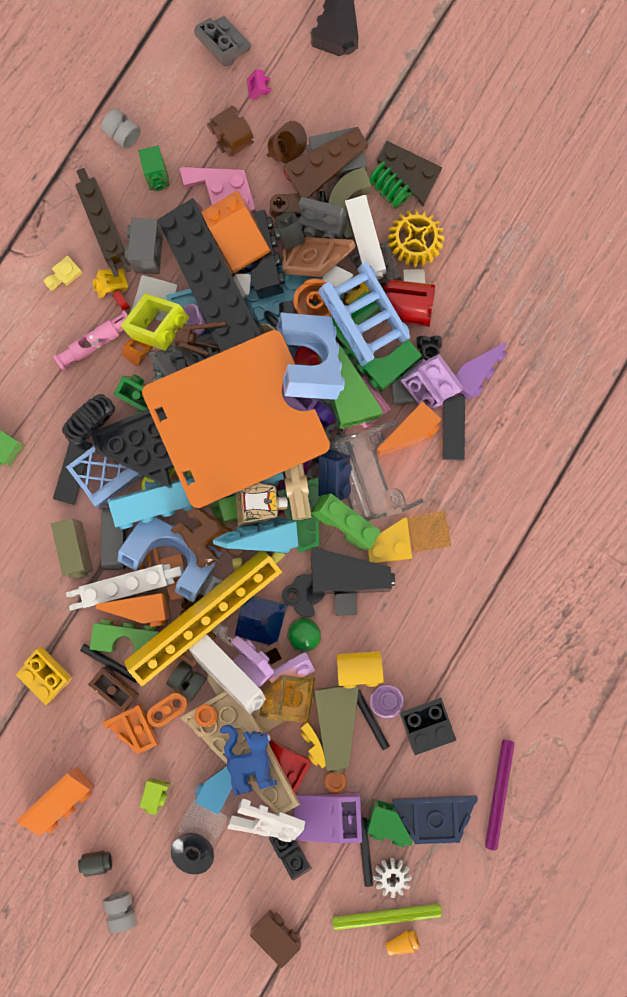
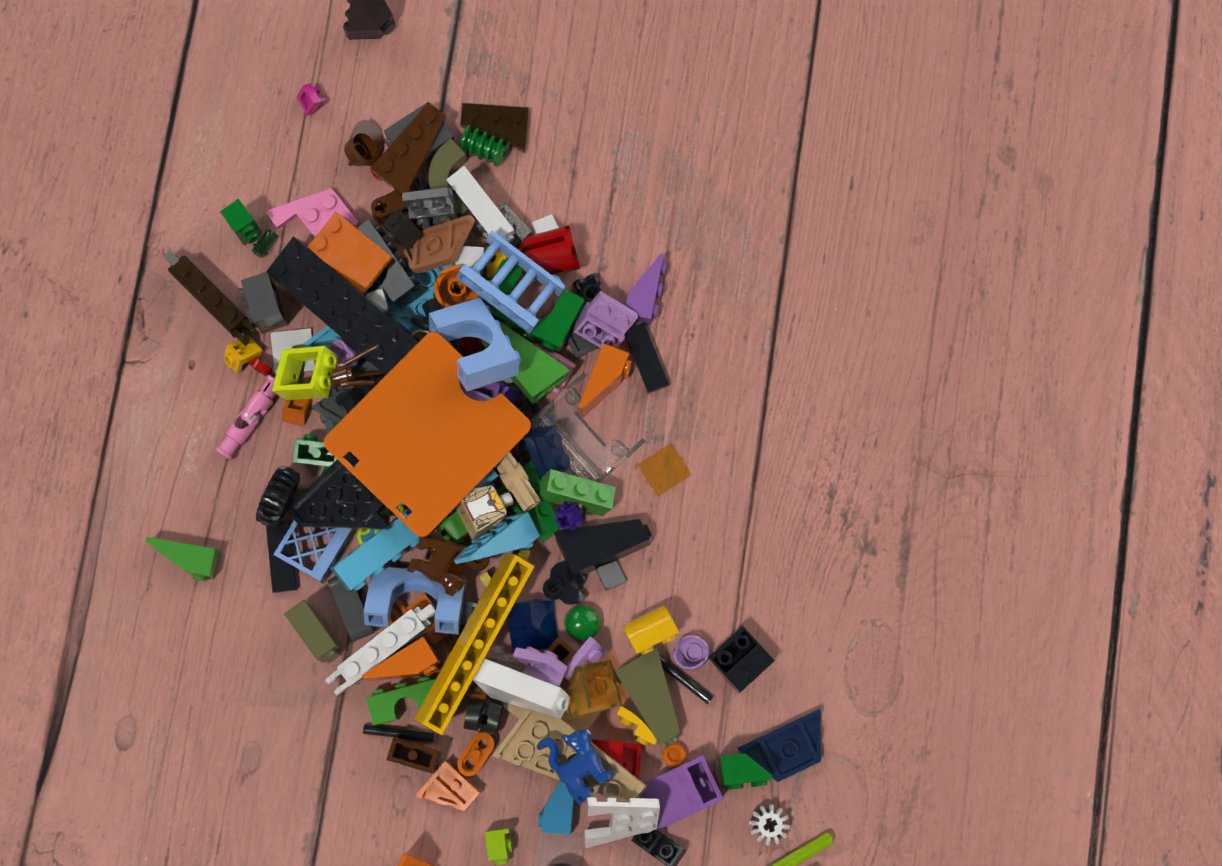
camera: 25 degrees left, 5 degrees down
(44, 675) = (337, 772): yellow brick -> none
(65, 271) = (191, 361): light yellow plate -> none
(123, 130) = (195, 197): light grey wheel -> none
(167, 195) = (263, 244): none -> clear green pin
(206, 715) = (517, 741): orange tile -> none
(222, 39) = (256, 68): dark grey brick -> none
(231, 131) = (303, 156): reddish brown brick -> none
(330, 539) = (569, 516): none -> dark purple gear
(365, 854) = (734, 815): black bar -> none
(392, 544) = (632, 497): yellow wing -> none
(411, 231) = (522, 203): yellow gear -> none
(499, 795) = (841, 699): magenta axle -> none

